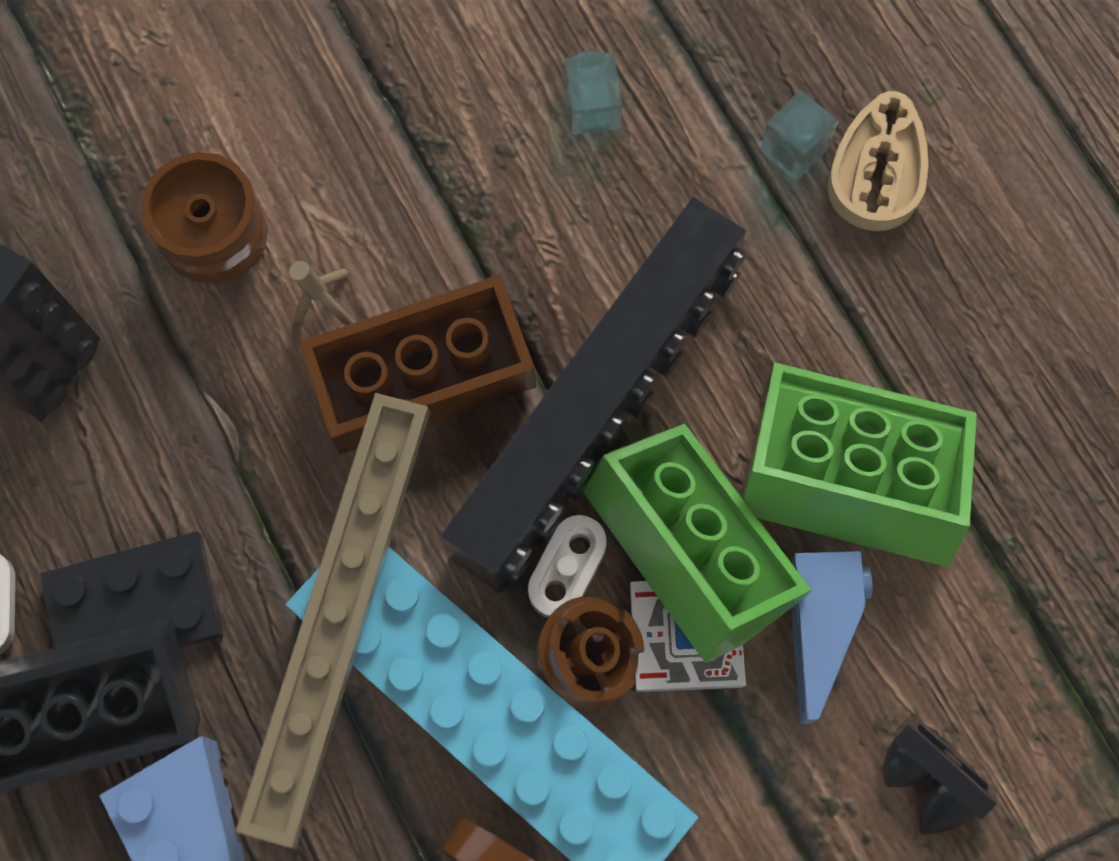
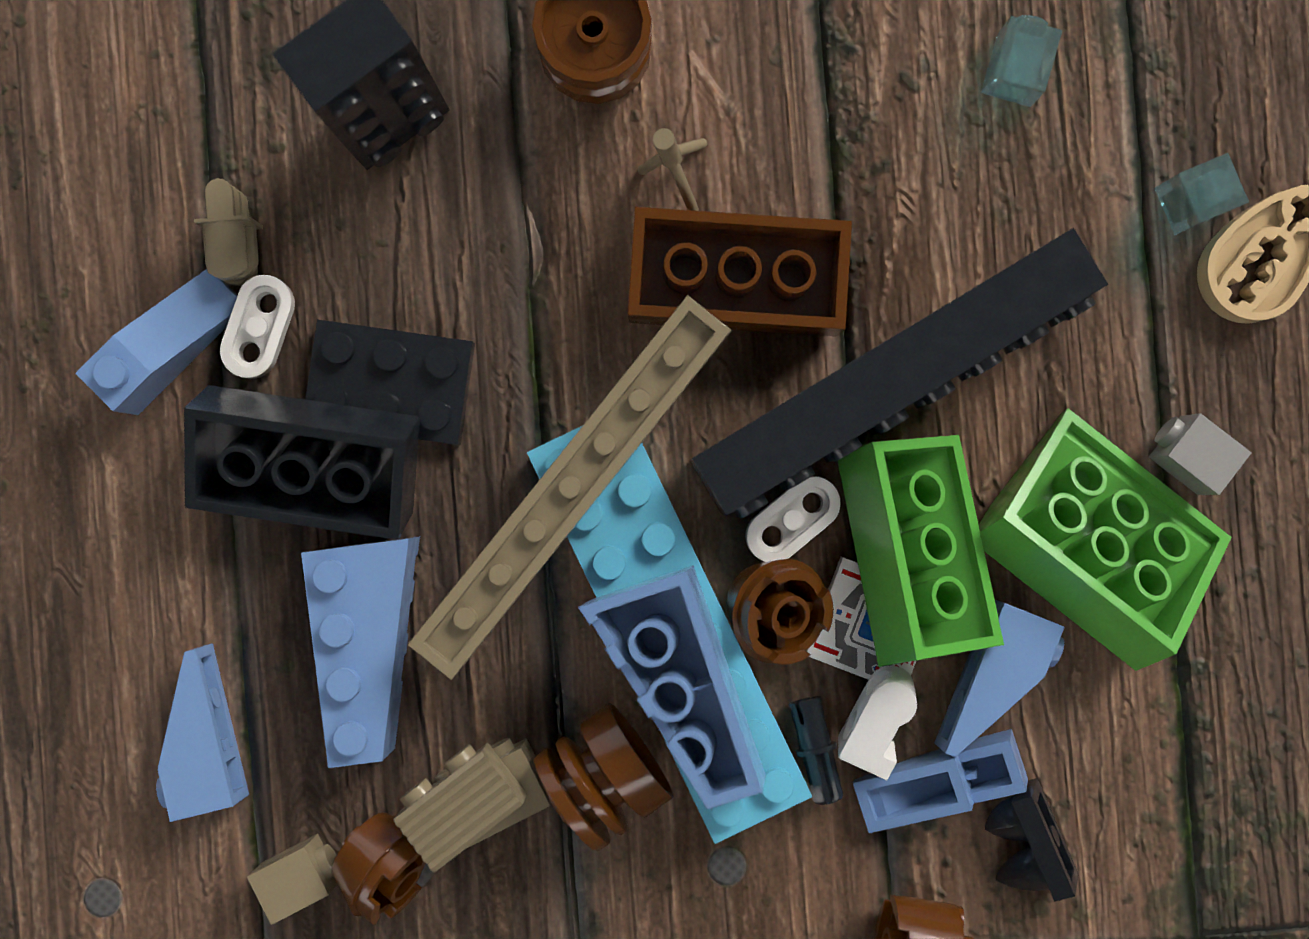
camera: 25 degrees right, 15 degrees up
(508, 738) = (678, 669): none -> medium blue wedge
(687, 777) = (816, 750): none -> black axle
(729, 702) = (879, 711): none -> white leg
(820, 756) = (942, 784): none -> medium blue slope
(906, 350) = (1198, 453): none -> light grey brick

